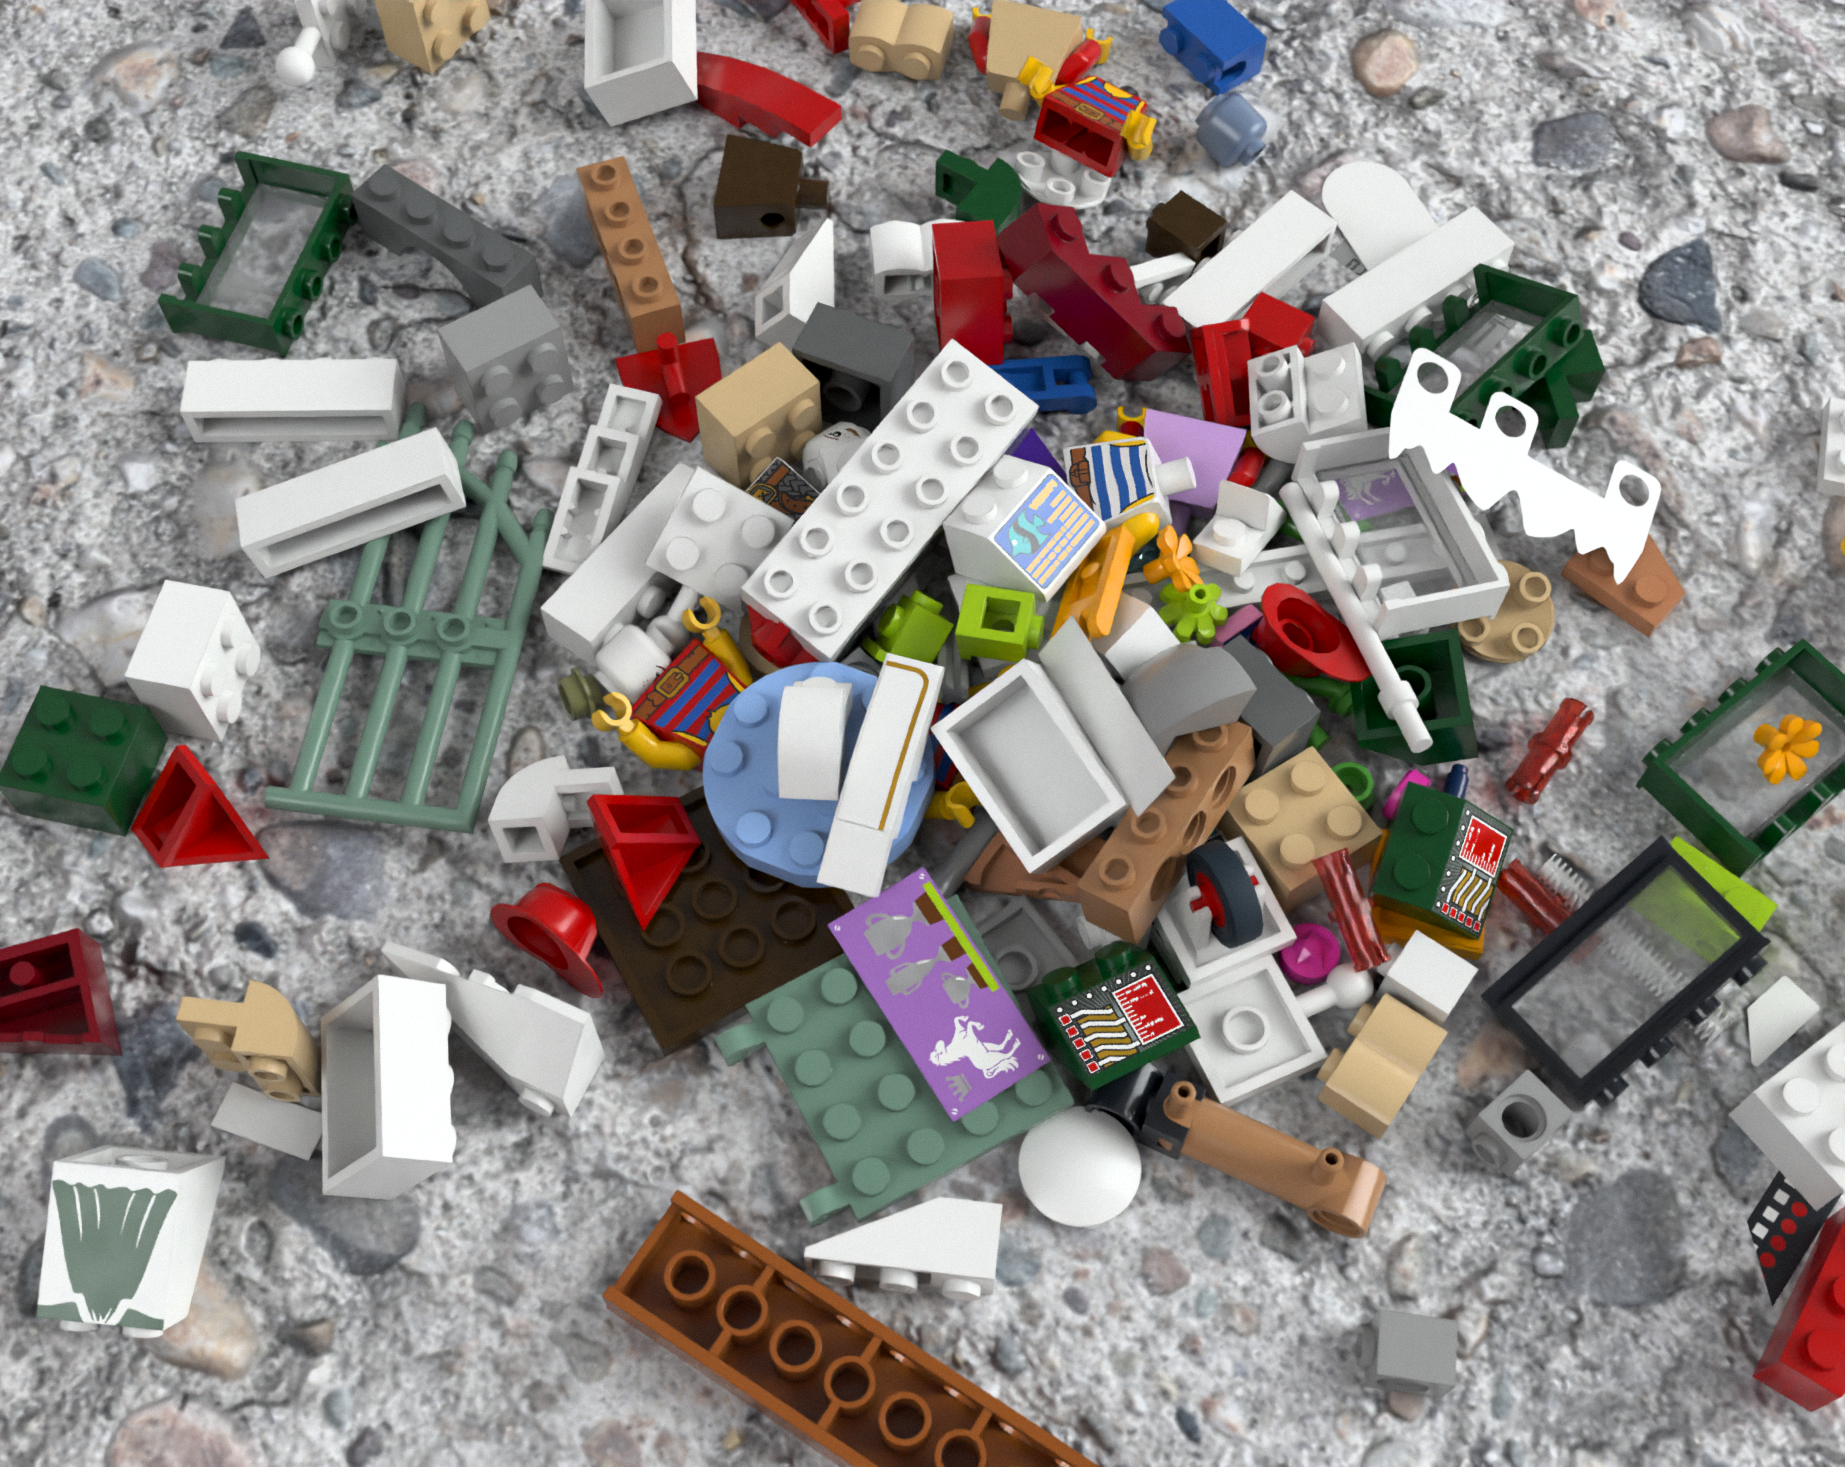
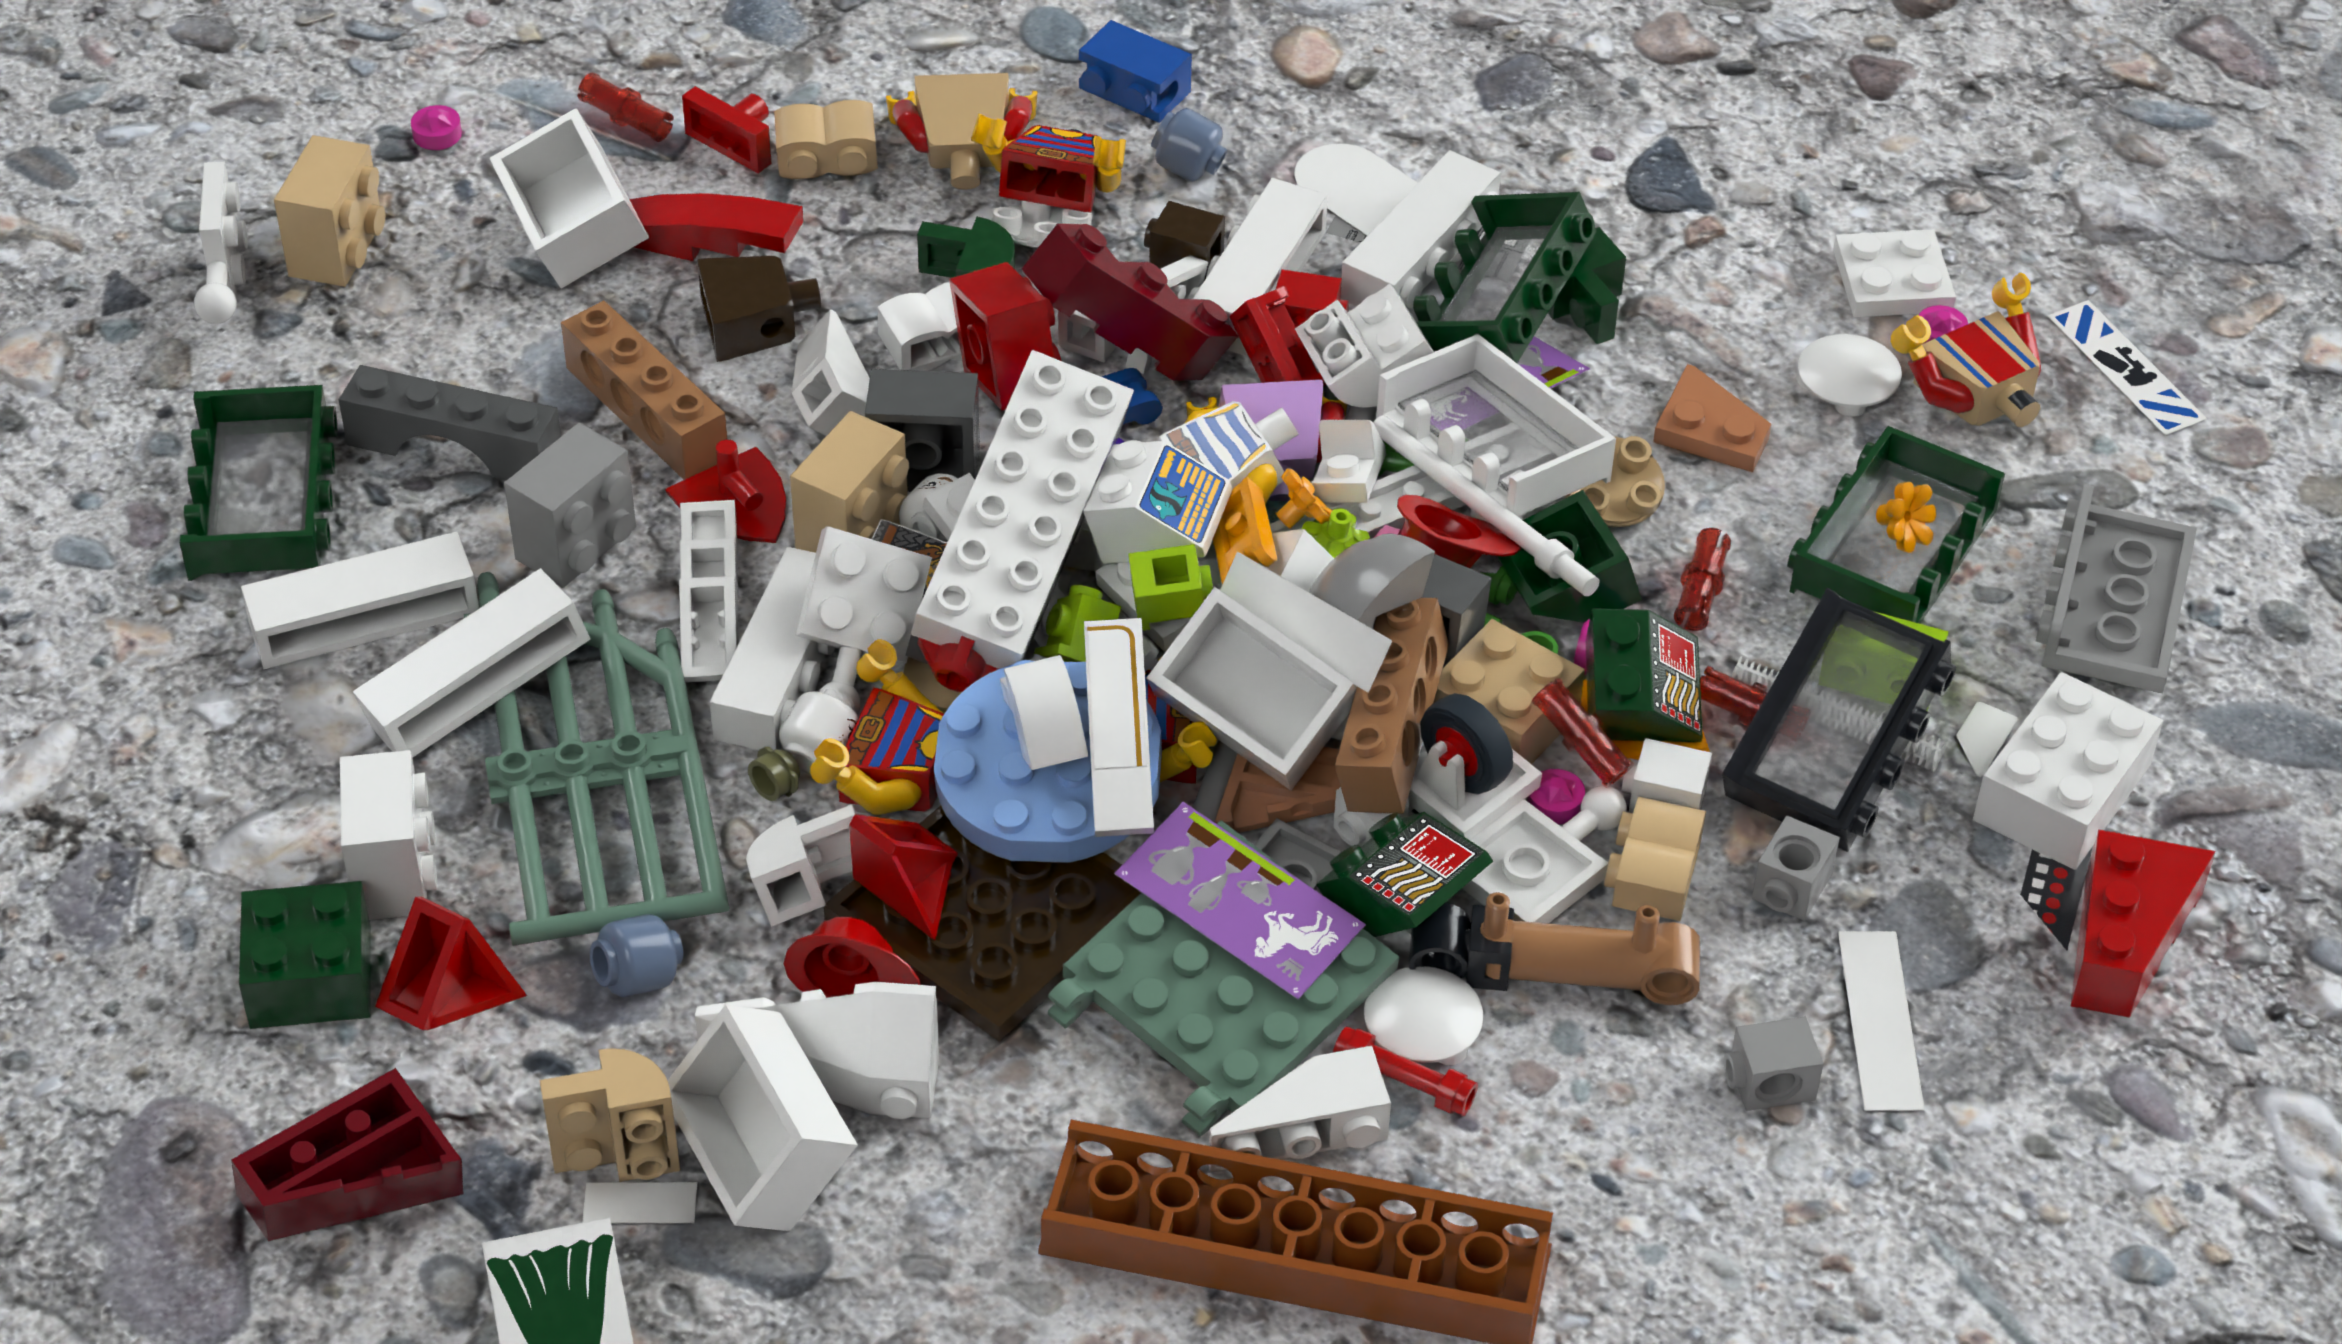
camera: 20 degrees left, 15 degrees down
(369, 856) = (636, 955): none -> sand blue head
(1072, 1267) = (1451, 1091): none -> red bar
(1497, 464) = (1564, 350): white piece -> none
(1543, 1328) = (1880, 1021): none -> white sticker
(1788, 554) = (1849, 372): none -> white dish

